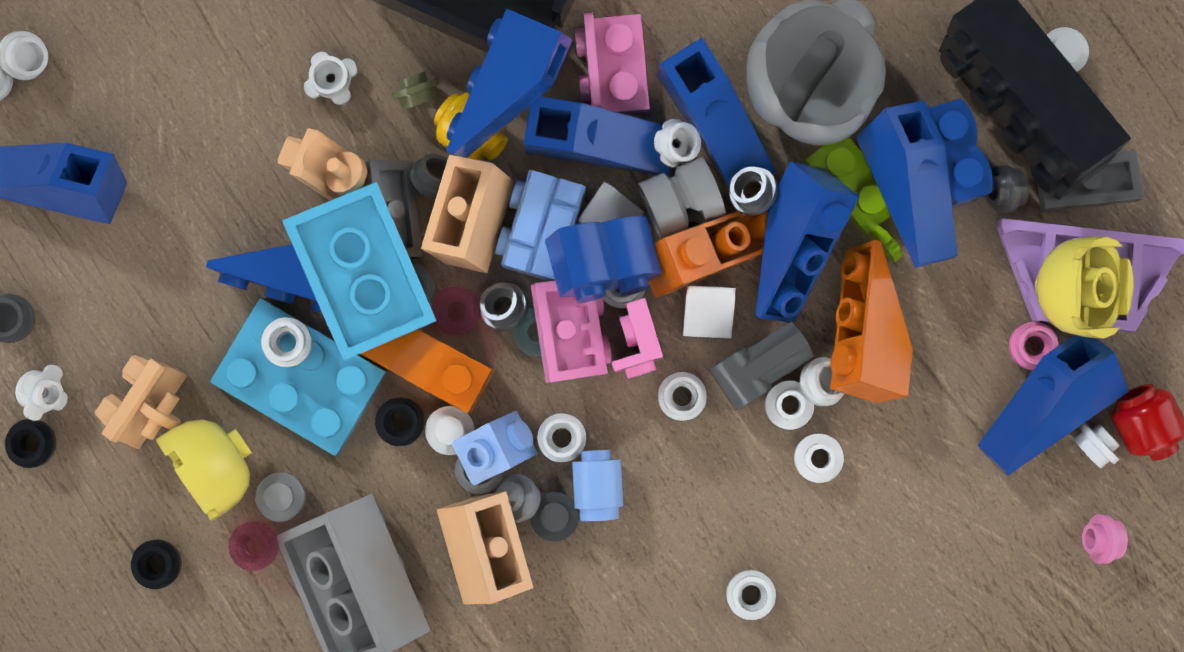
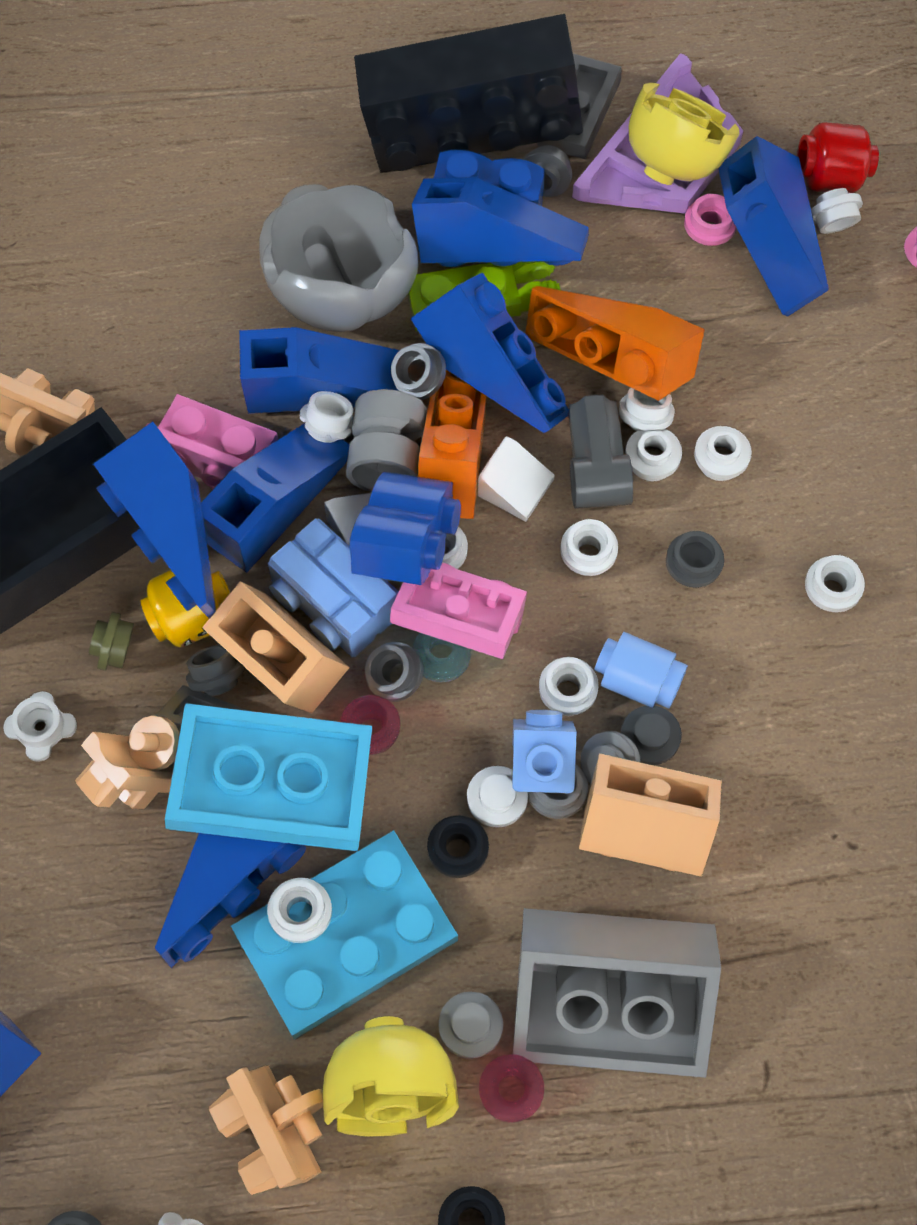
camera: 60 degrees left, 20 degrees down
(434, 368) = (419, 772): orange slope -> none
(639, 332) = (508, 536): bright pink bracket -> none
(715, 480) = (695, 559): none -> dark grey plate

